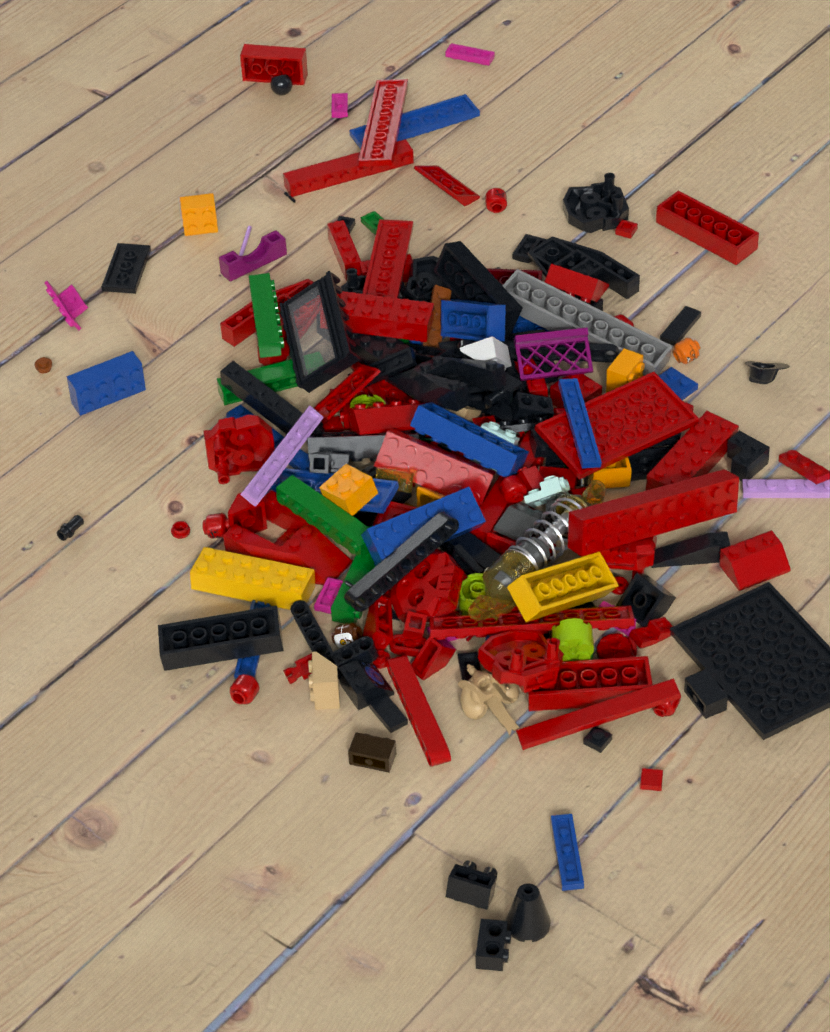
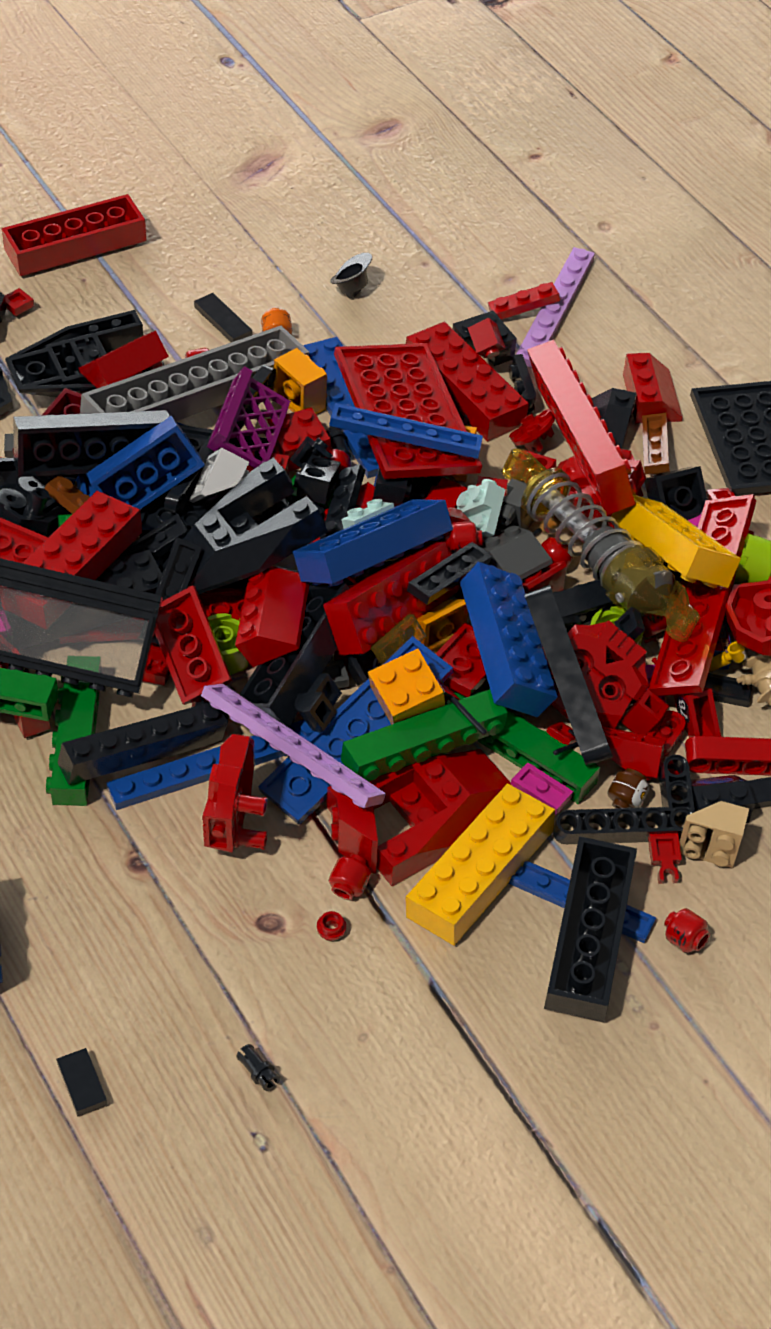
camera: 75 degrees left, 5 degrees up
(36, 463) = (81, 1082): none -> black tile
(360, 509) = (454, 699): none -> black piece
(457, 481) = (447, 573): none -> black plate
(472, 589) = (631, 623): none -> black plate
(556, 398) = (308, 448): none -> black bracket
(688, 573) = (655, 444): none -> dark orange plate
(727, 448) = (486, 338): none -> red brick

